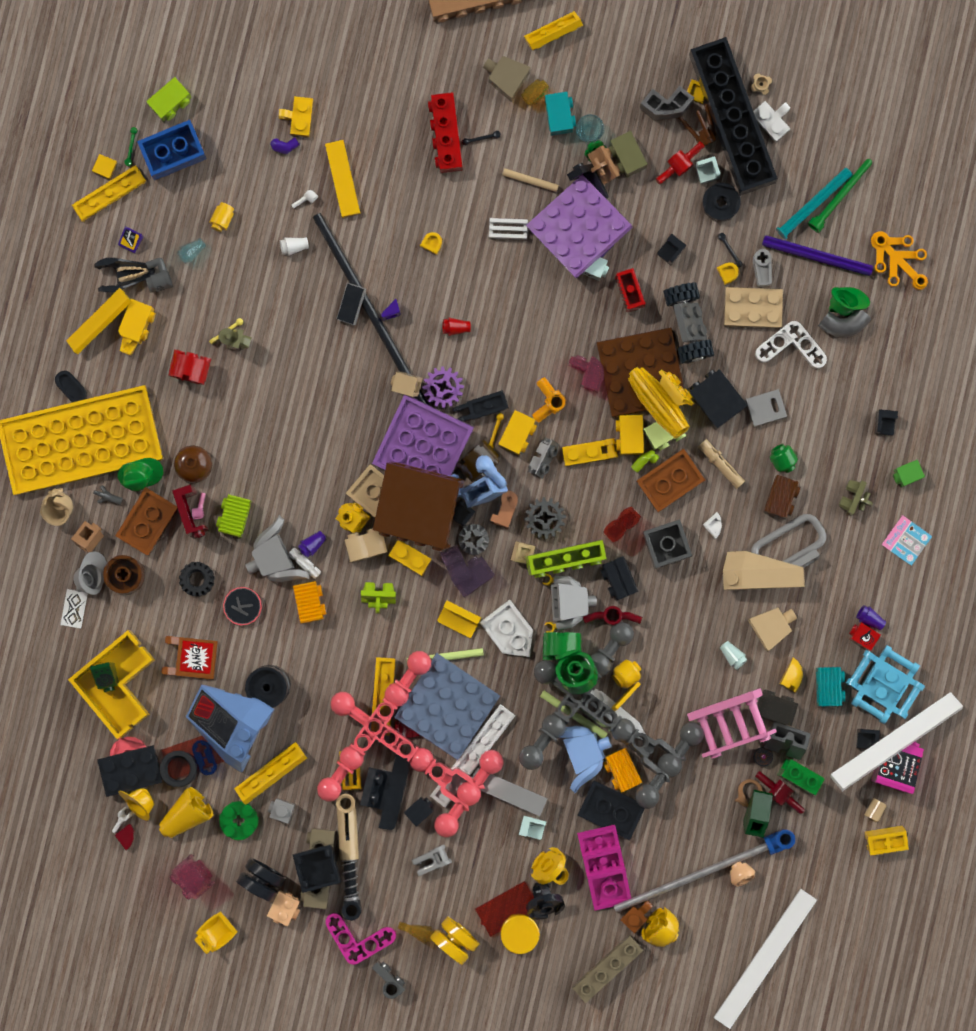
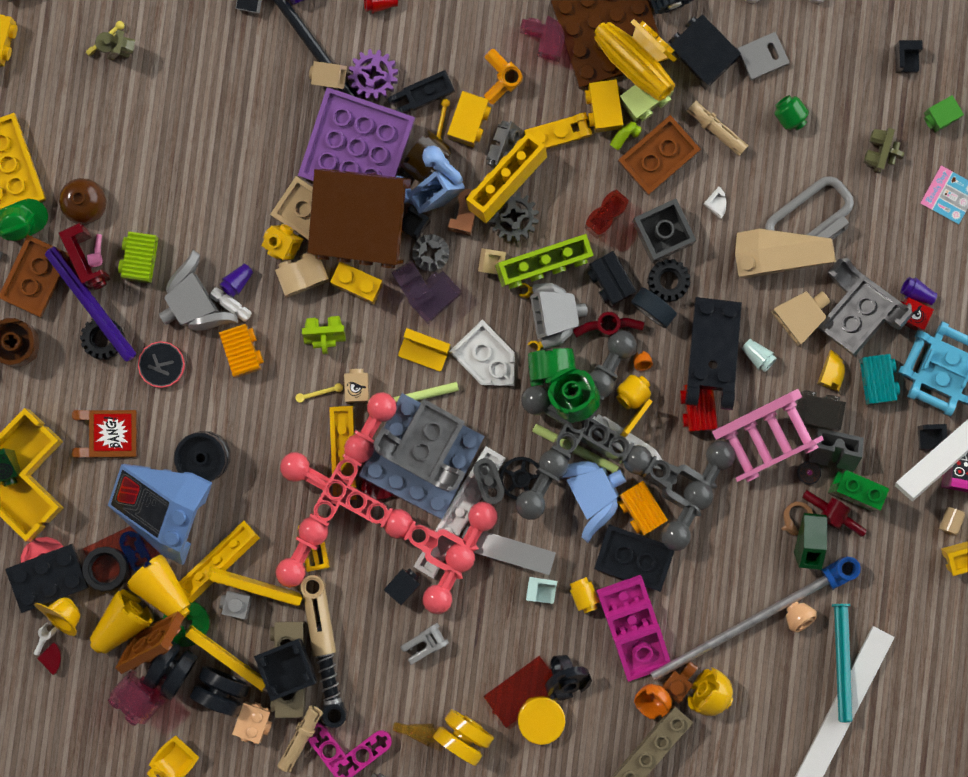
camera: 10 degrees left, 0 degrees up
(189, 367) = (64, 85): red brick -> none
(190, 550) = (90, 304): none -> dark purple axle
(209, 834) = (150, 643): none -> dark orange plate
(222, 790) = (160, 587): none -> yellow cone
(222, 857) = (170, 670): none -> black wheel
(268, 852) = (225, 657): none -> yellow tile
(298, 797) = (254, 586): none -> yellow tile
(326, 920) = (303, 731): none -> tan pin
(353, 646) = (301, 398): none -> light yellow hinge
(385, 791) = (359, 566): black plate -> none
(400, 643) = (356, 386): none -> tan brick
(451, 699) = (425, 446): none -> flat silver piece
(499, 733) = (488, 481): none -> dark grey plate
(525, 733) = (520, 478): none -> black wheel
(543, 486) = (506, 177): none -> yellow brick
(548, 867) = (567, 634): yellow tile -> none
(567, 835) = (584, 595): none -> yellow brick
(613, 929) = (653, 701): none -> orange hair
(637, 649) = (642, 361): none -> orange hinge
(651, 606) = (654, 307): none -> black wheel
(666, 573) = (669, 266): none -> black tyre
(679, 692) = (701, 416): none -> red brick
(696, 639) = (714, 340): none -> black hinge
(772, 915) = (843, 662): none -> teal axle
(781, 497) = (794, 159): reddish brown brick -> none
(821, 627) = (861, 309): none -> flat silver piece

